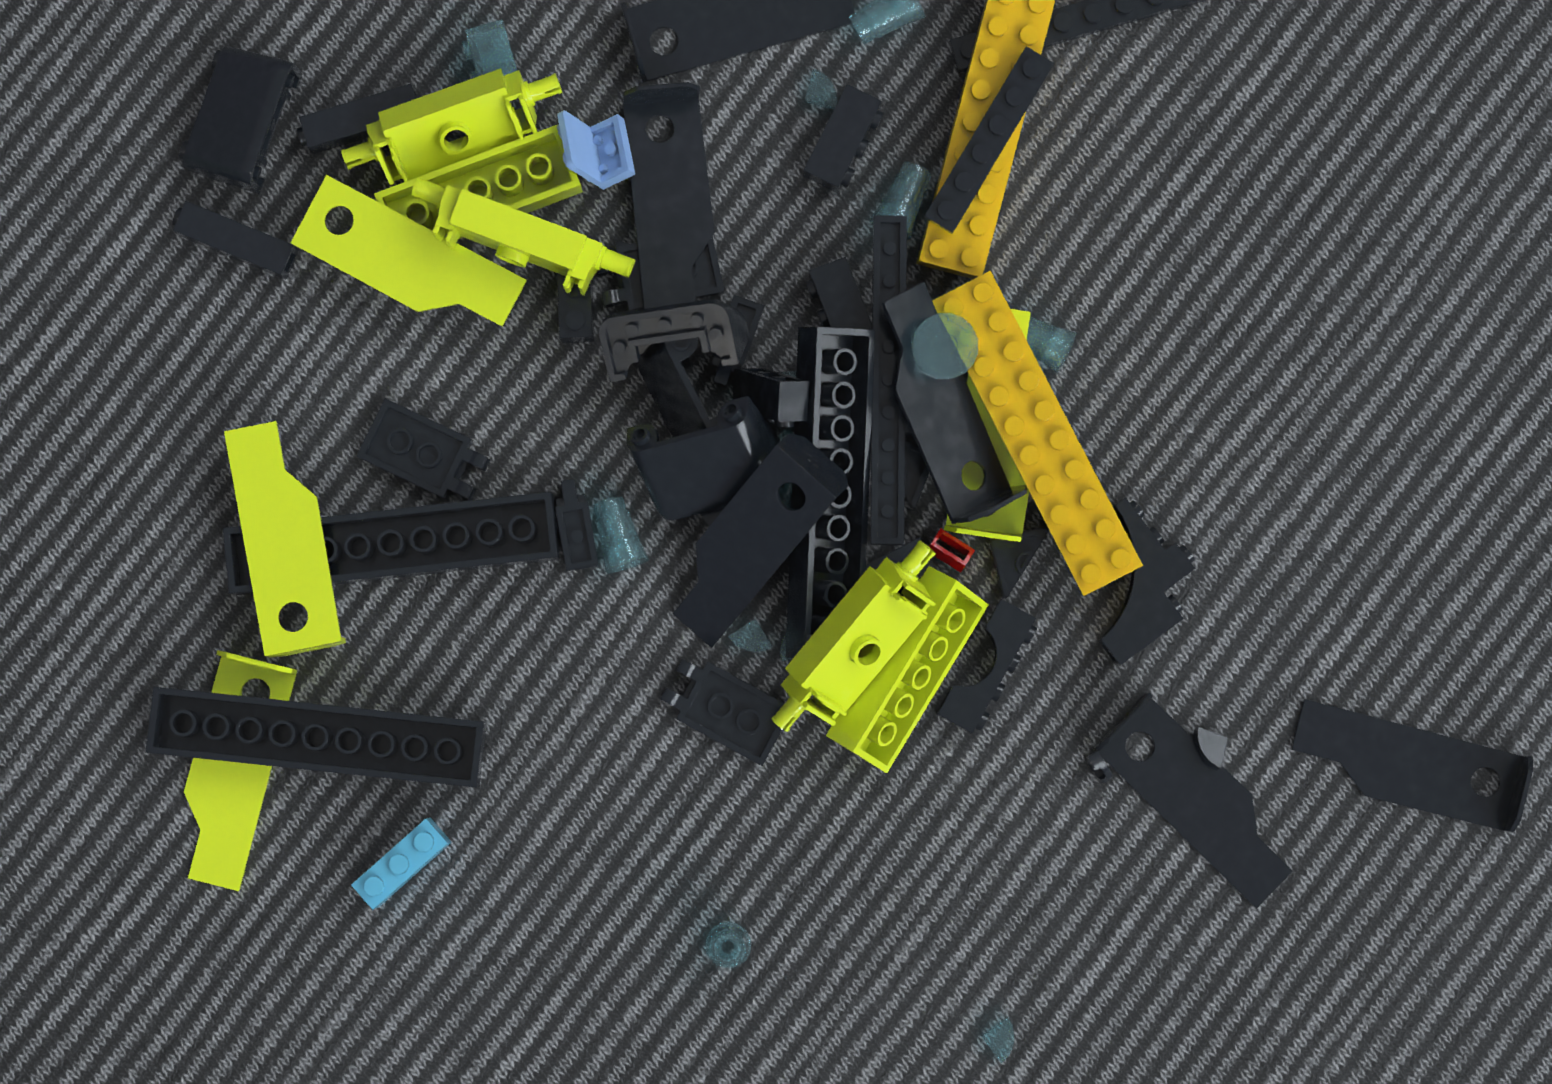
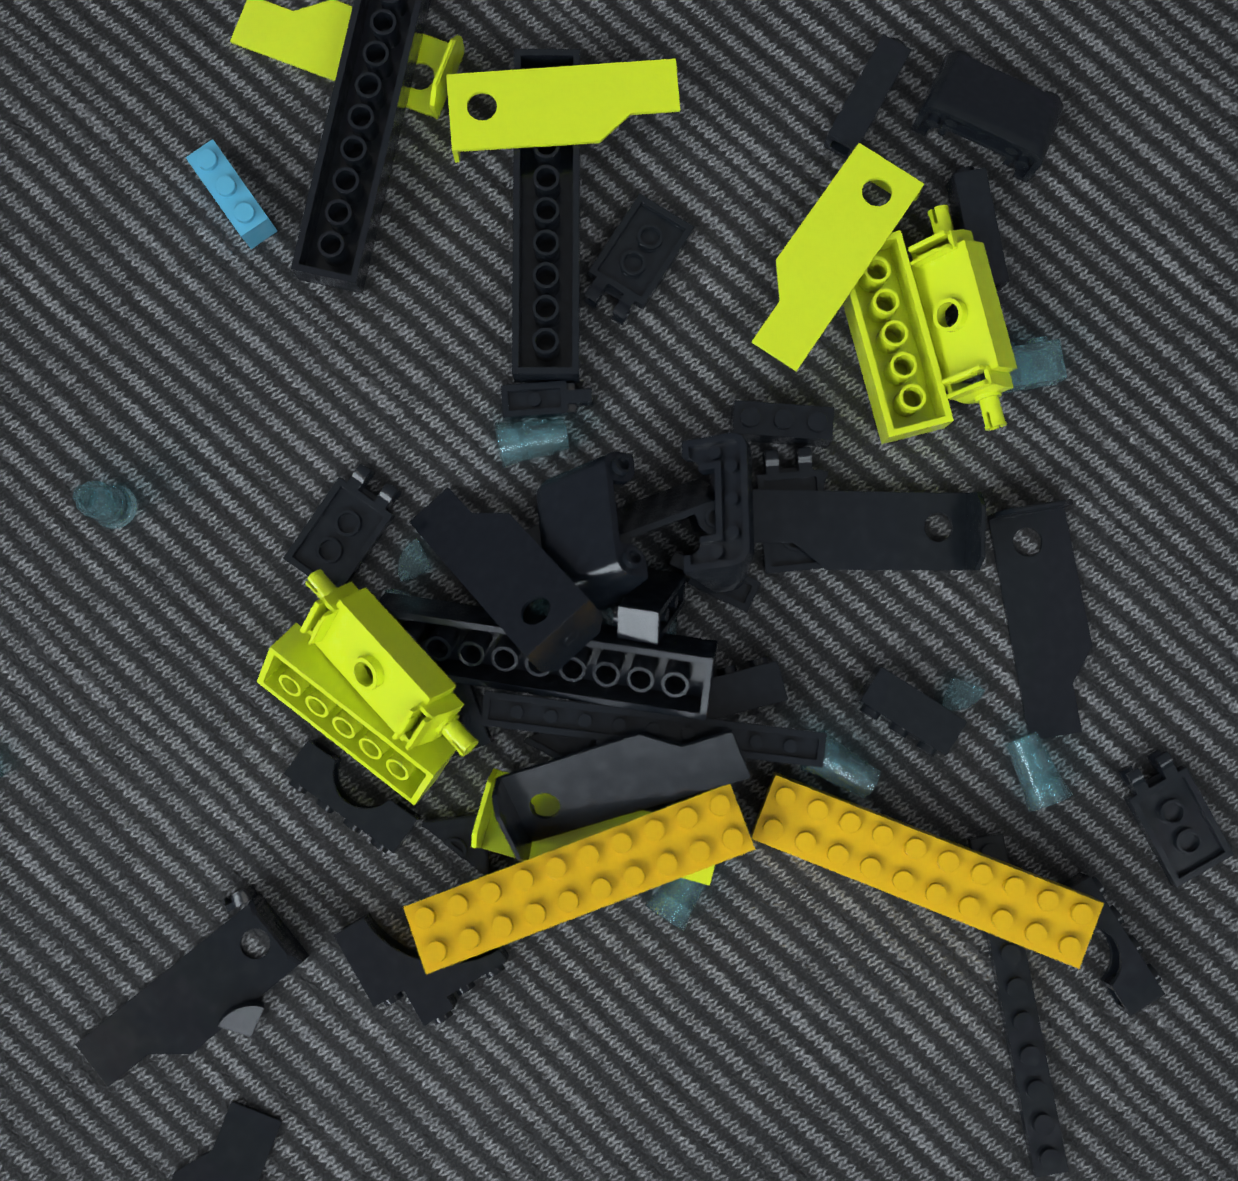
camera: 90 degrees right, 0 degrees up
(519, 235) = (841, 363): neon yellow brick -> none
(598, 151) = (920, 455): light blue bracket -> none
(944, 346) = (679, 791): clear light blue tile -> none
(948, 557) = (469, 767): red piece -> none
(989, 140) = (895, 864): black plate -> none

